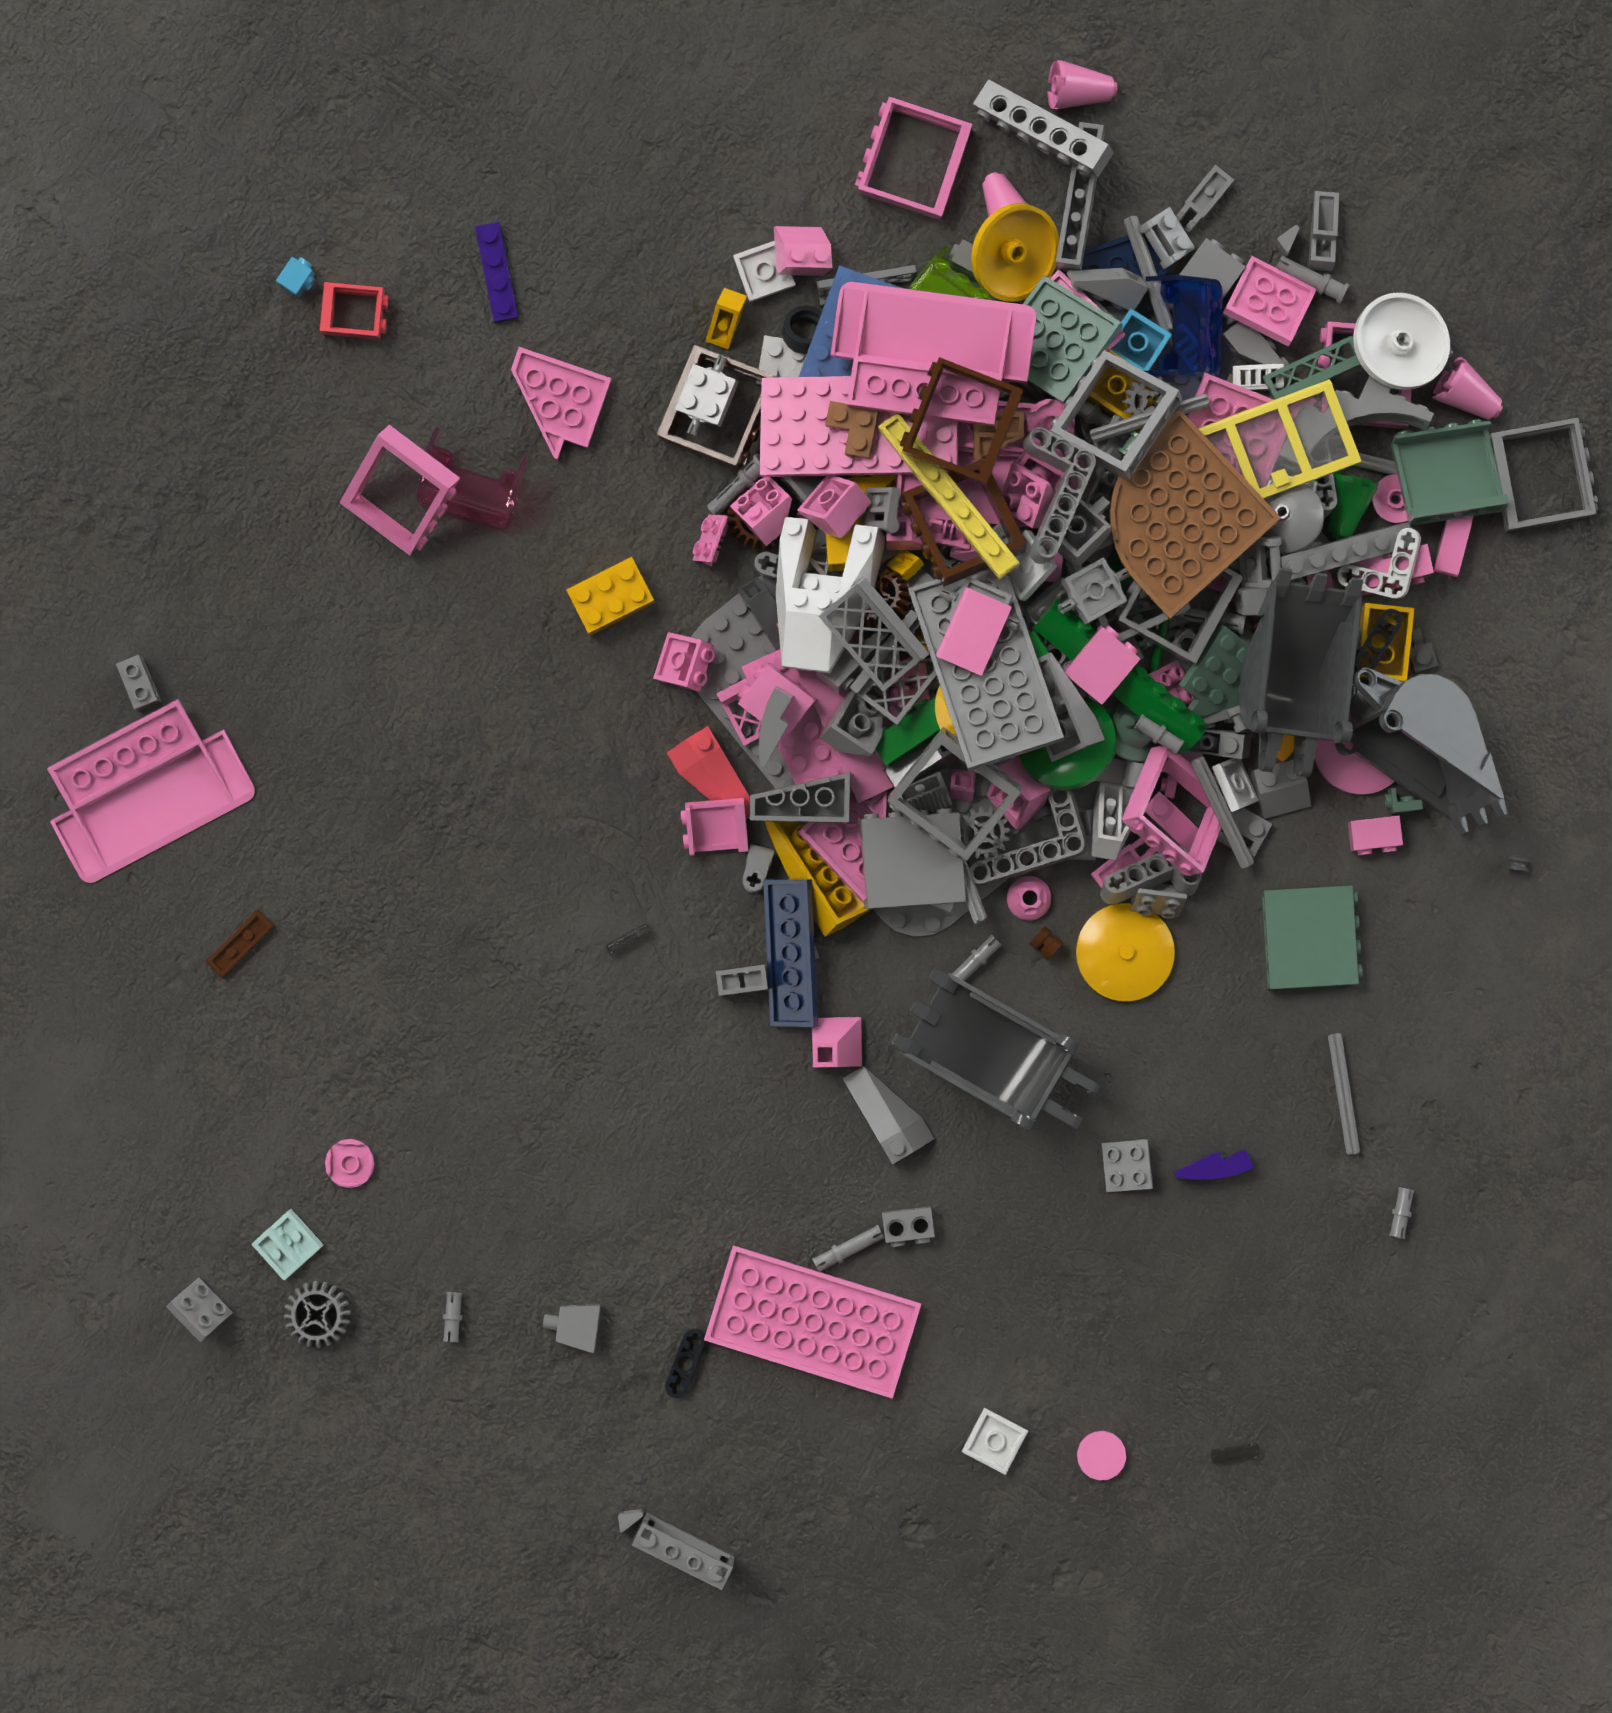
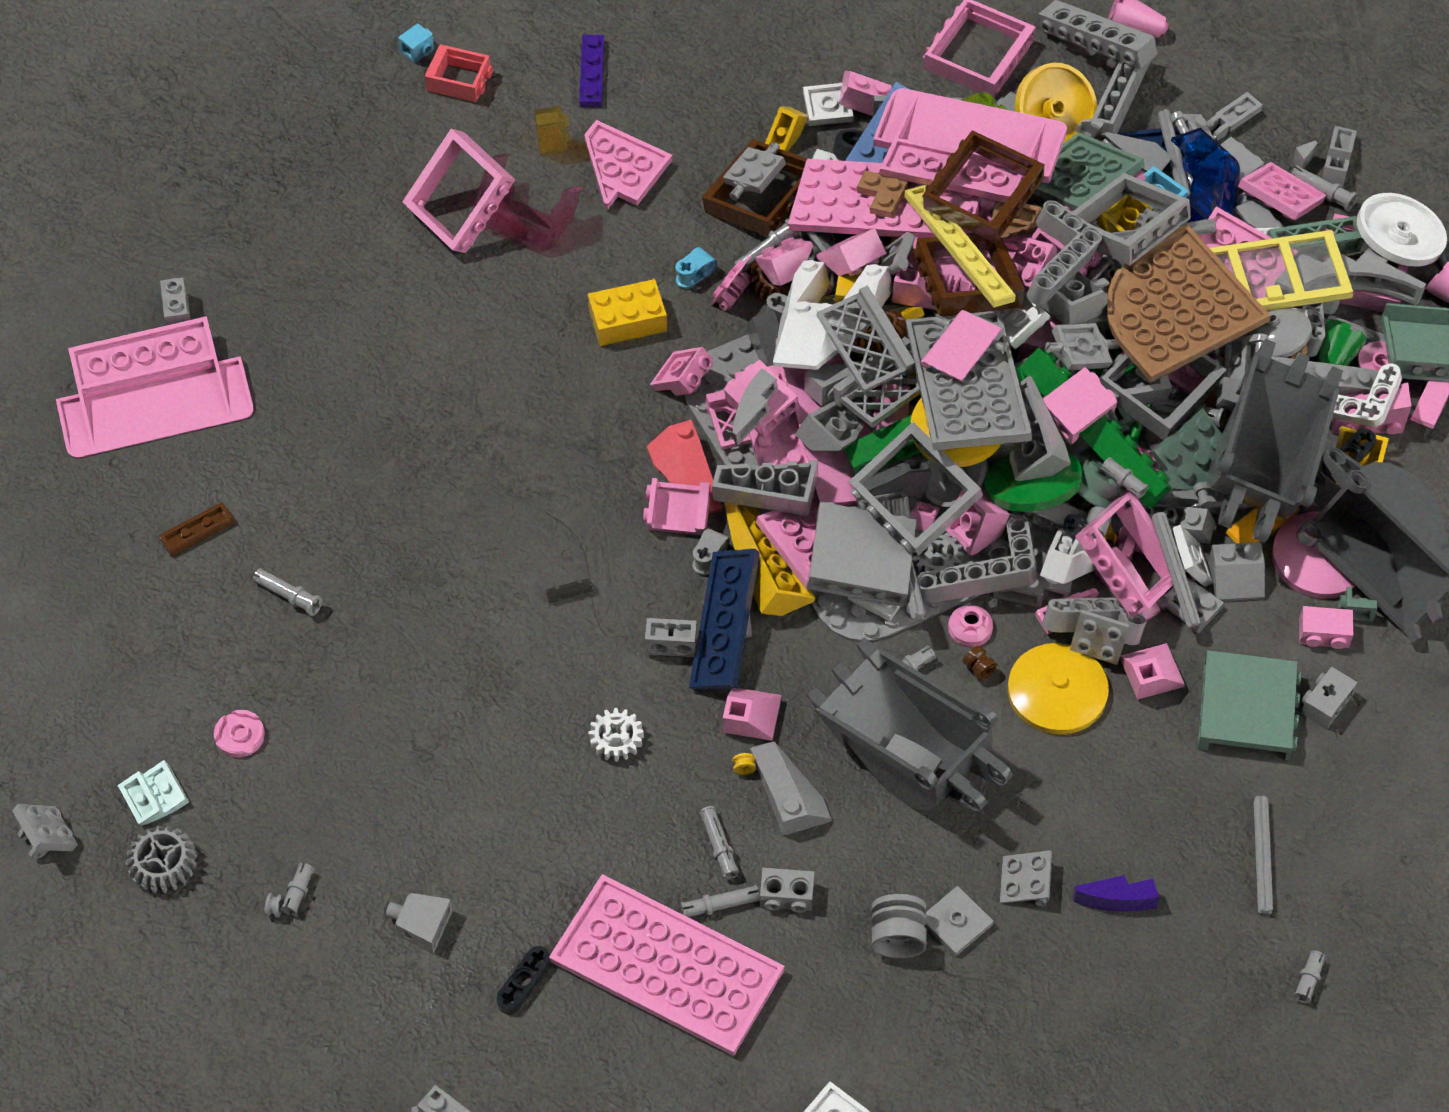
camera: 10 degrees right, 30 degrees down
(362, 1003) = (296, 596): none -> light grey pin
(436, 1338) = (273, 905): none -> light grey bush
(476, 377) = (551, 130): none -> clear yellow brick
(670, 518) = (694, 268): none -> medium azure piece
(722, 1100) = (616, 734): none -> white gear
(834, 1187) = (722, 851): none -> light grey pin
(841, 1100) = (744, 764): none -> yellow bush
(1000, 1070) = (913, 753): none -> light grey slope
(1019, 1247) = (898, 926): none -> light grey wheel
(1054, 269) = (1089, 127): none -> light grey tile
(1069, 1221) = (957, 921): none -> light grey plate
(1116, 784) = (1074, 524): none -> black bush
(1213, 916) = (1152, 671): none -> bright pink slope
(1397, 905) = (1328, 698): none -> light grey brick

